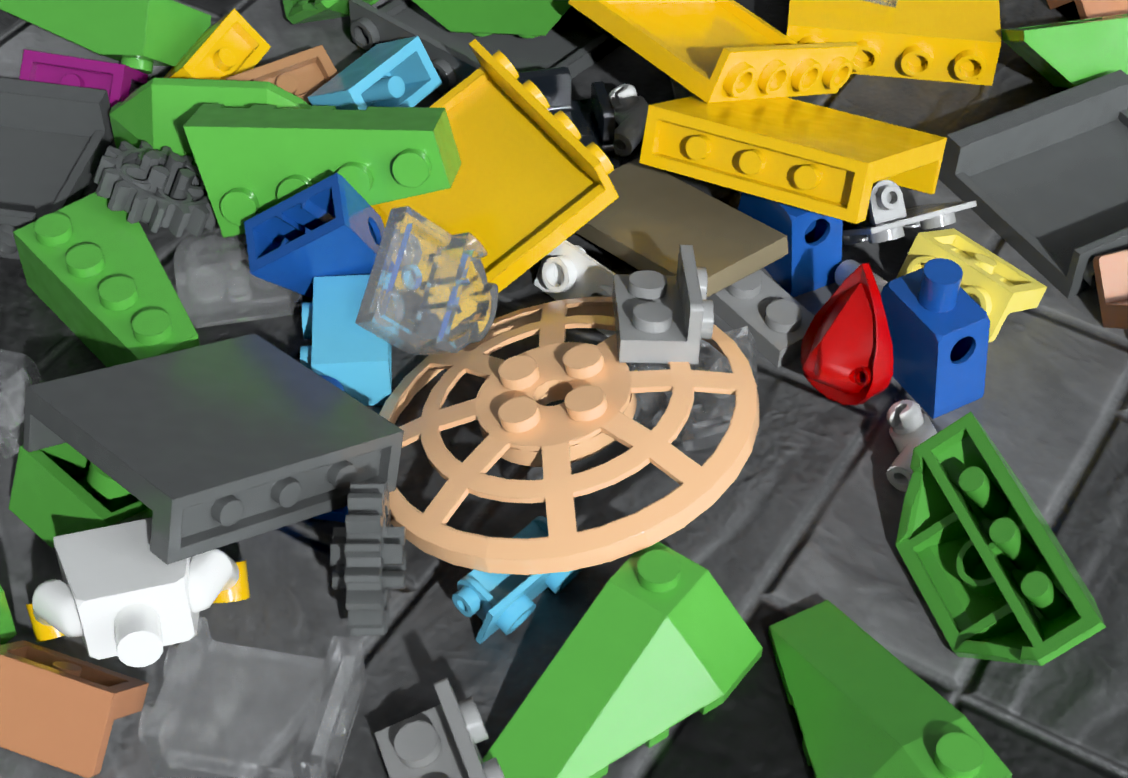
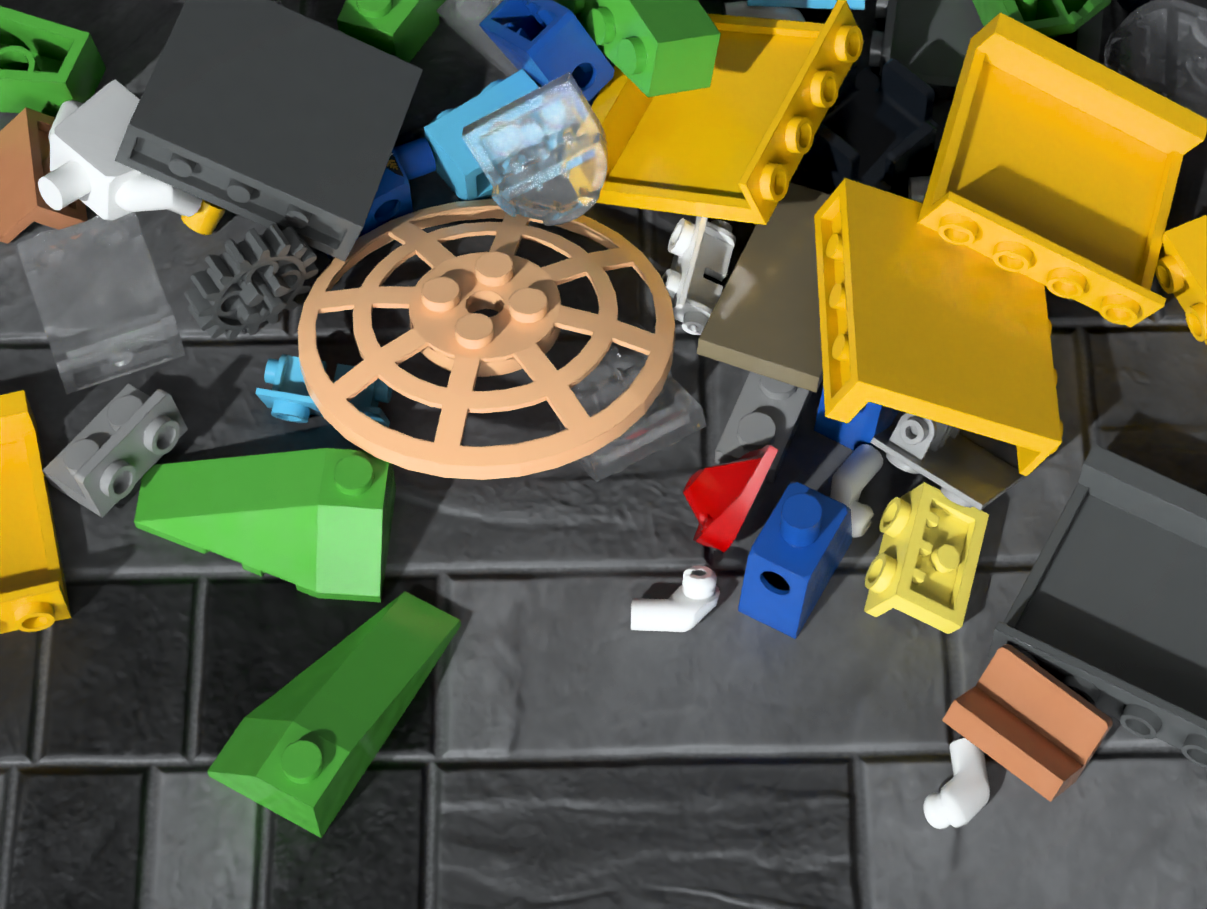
camera: 60 degrees right, 15 degrees up
(663, 315) = (620, 329): light grey bracket -> none
(988, 554) = (570, 715): bright green wedge -> none

